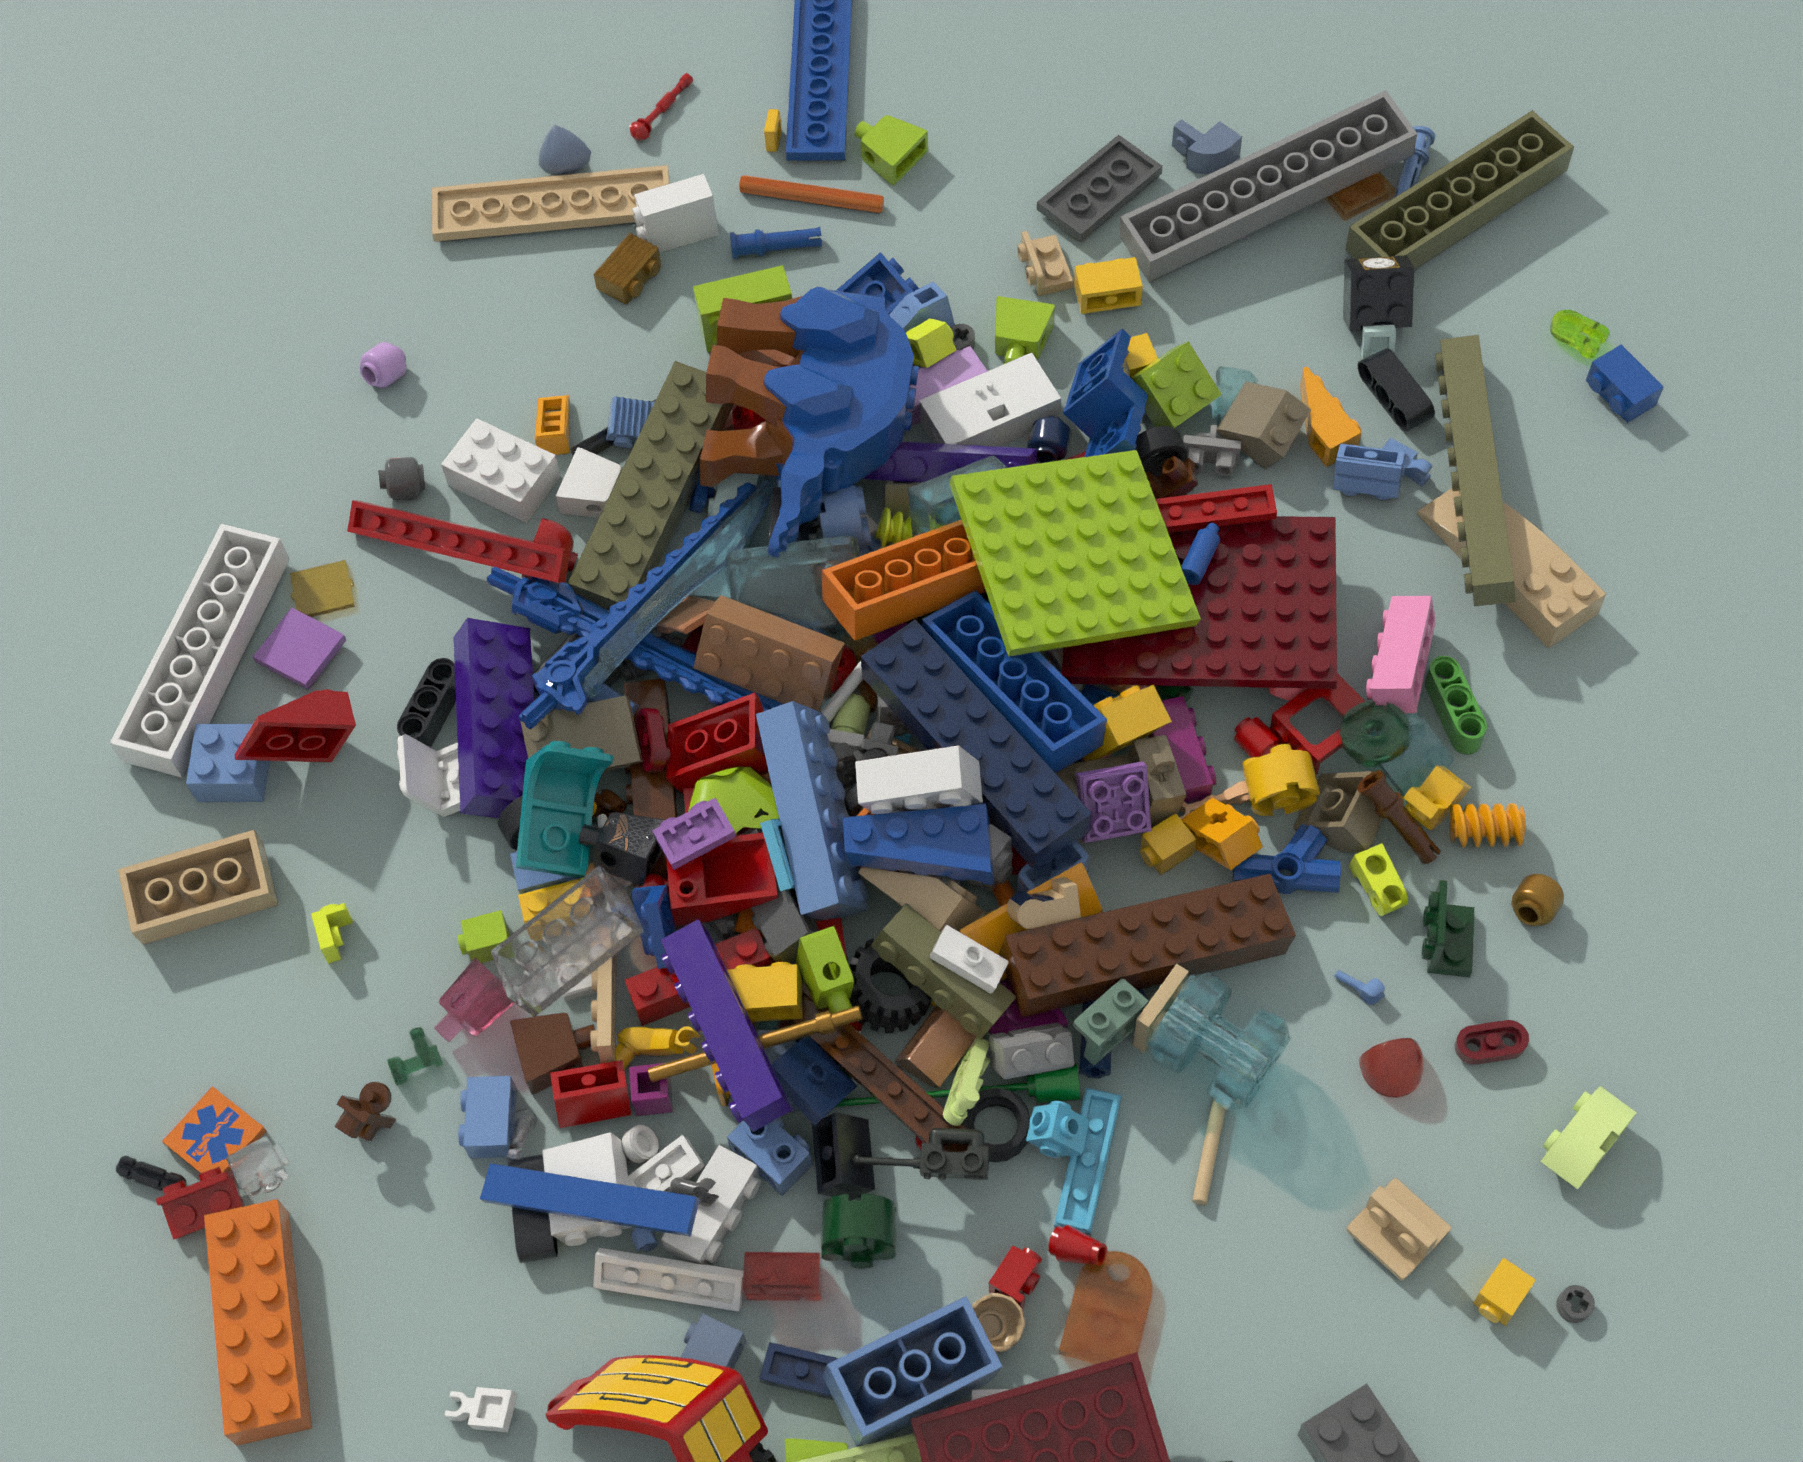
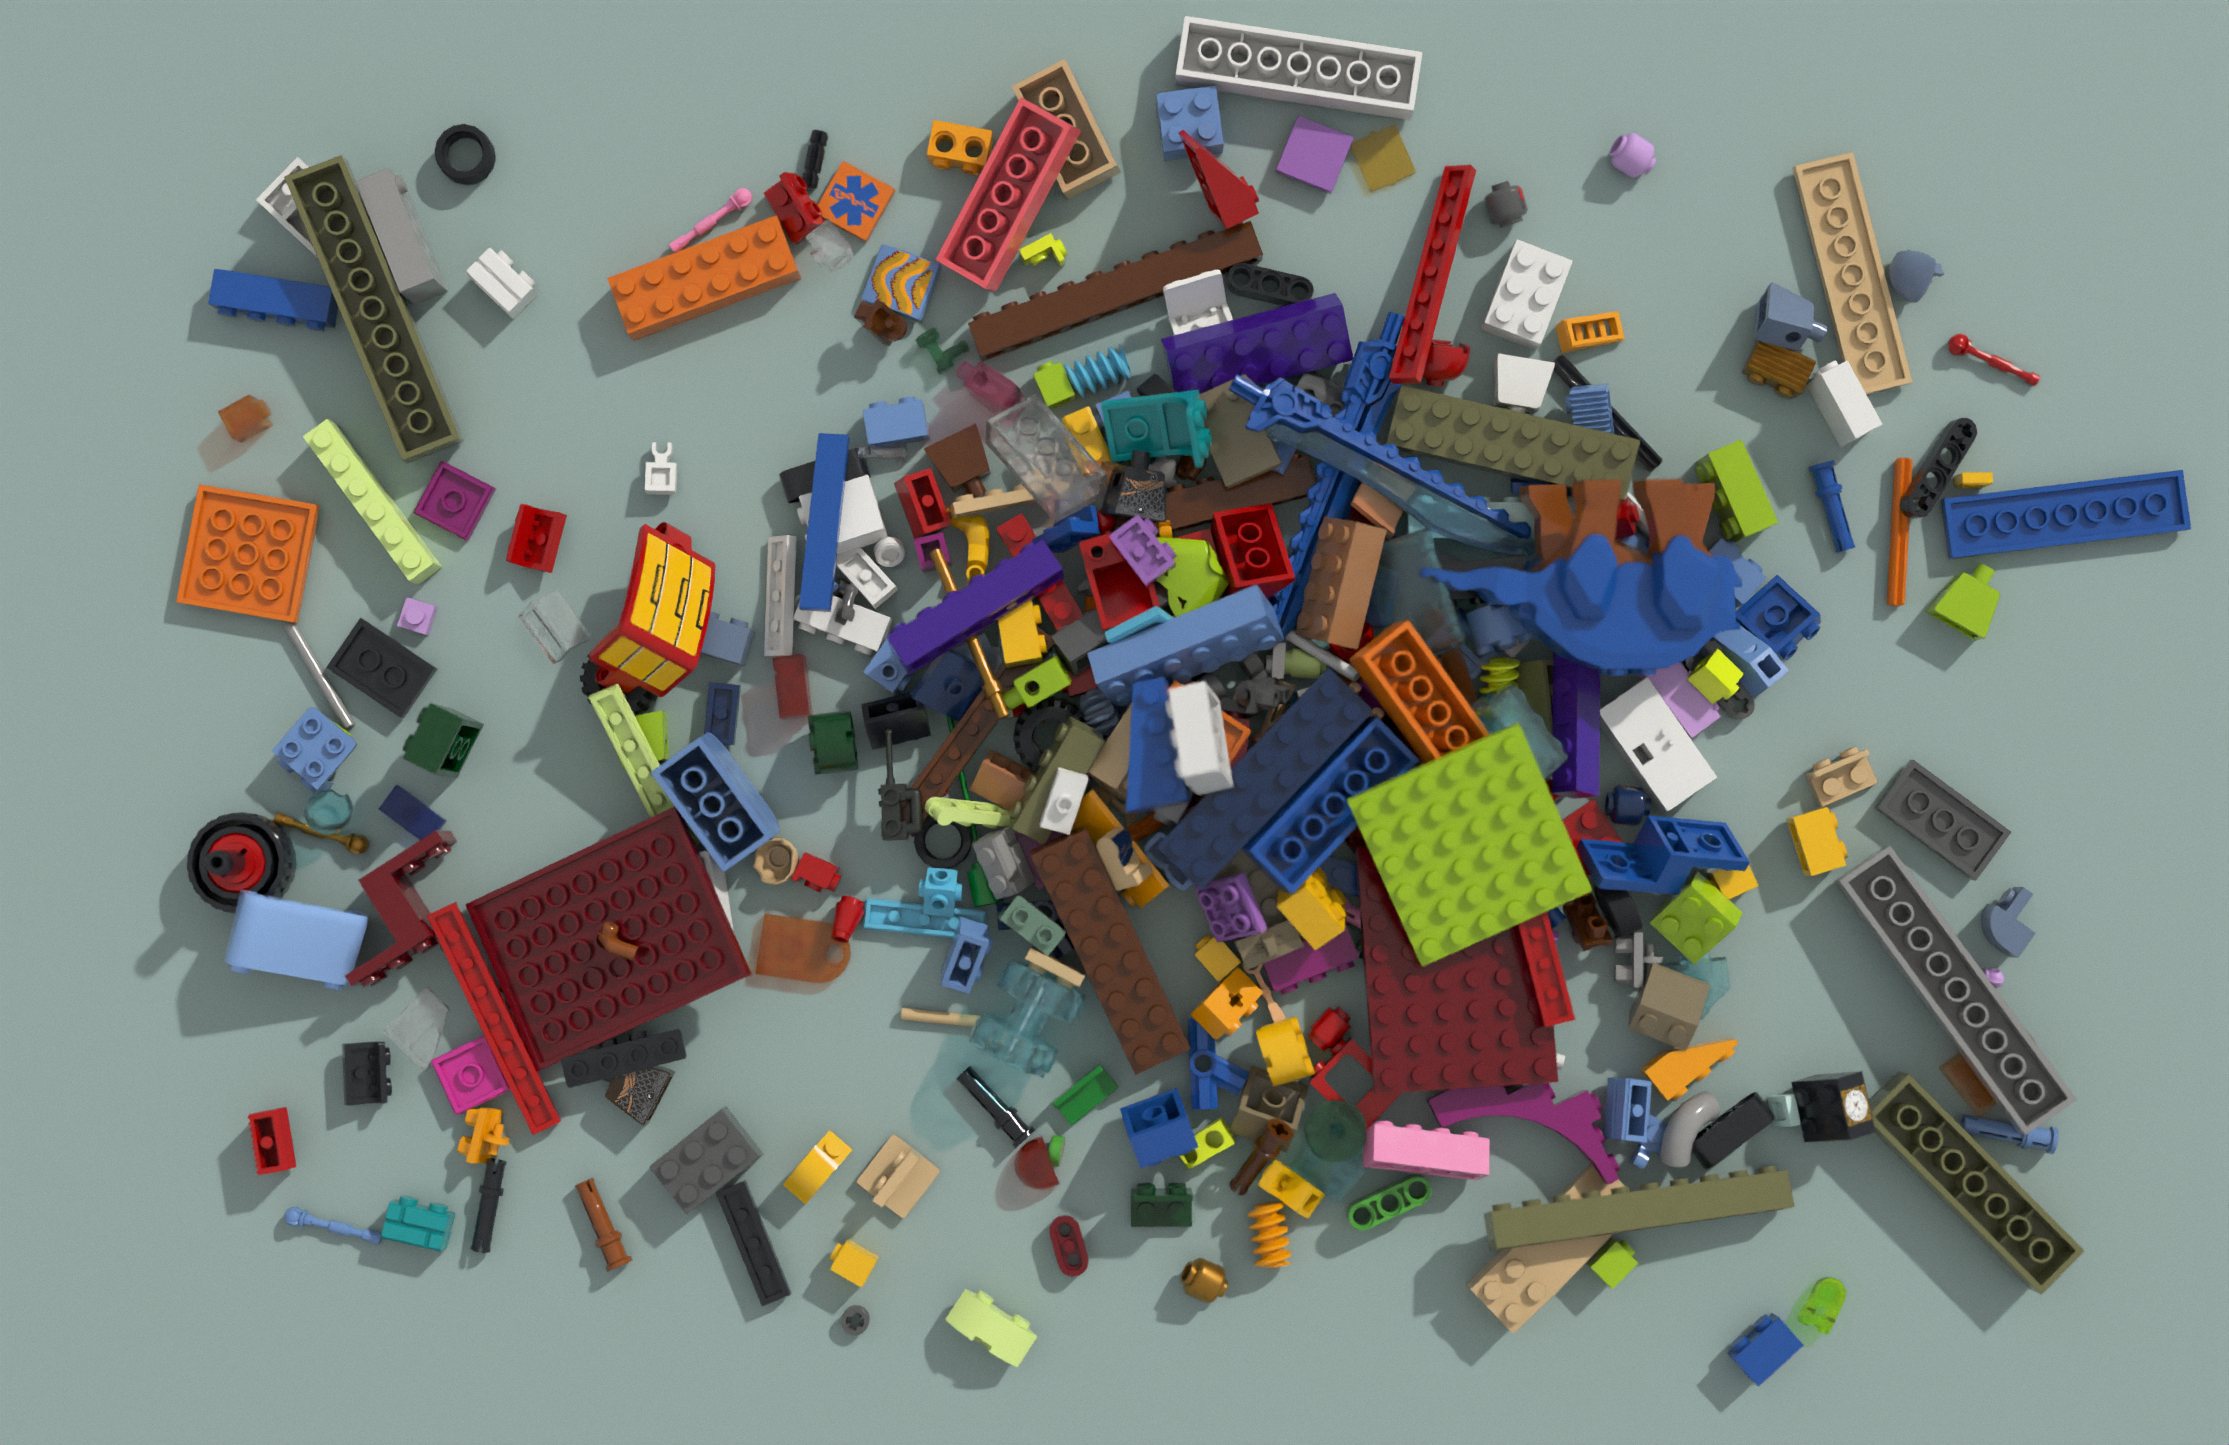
camera: 80 degrees right, 25 degrees up
(173, 1272) = (741, 198): none -> bright pink piece
(176, 1004) = (962, 138): none -> light orange brick
(254, 946) = (1008, 195): none -> coral brick
(317, 1087) = (901, 282): none -> slope
(395, 870) = (1112, 291): none -> reddish brown brick
(479, 883) = (1098, 371): none -> medium azure piece
(580, 254) = (1786, 319): none -> sand blue torso
(651, 739) = (1255, 489): dark red plate -> none
(781, 168) = (1940, 469): none -> black beam
(866, 923) = (1100, 711): none -> sand blue gear
(1022, 327) = (1753, 762): lime torso -> none
(1137, 1107) = (965, 955): none -> medium blue brick
(1200, 554) = (1494, 960): blue cylinder -> none
(1312, 1004) = (1085, 1094): none -> green panel
(1333, 1096) = (1005, 1117): none -> black pin
(1359, 917) = (1158, 1128): none -> blue brick
(1369, 992) = (1103, 1141): medium blue hand -> none
(1372, 1037) = (1056, 1150): none -> bright green tile
(1373, 527) = (1533, 1102): none -> magenta arch
(1386, 1320) = (817, 1167): none -> yellow brick
(1392, 422) = (1684, 1127): none -> light grey cylinder
(1476, 1415) = (753, 1243): none -> black plate
(1532, 501) = (1613, 1261): none -> lime brick

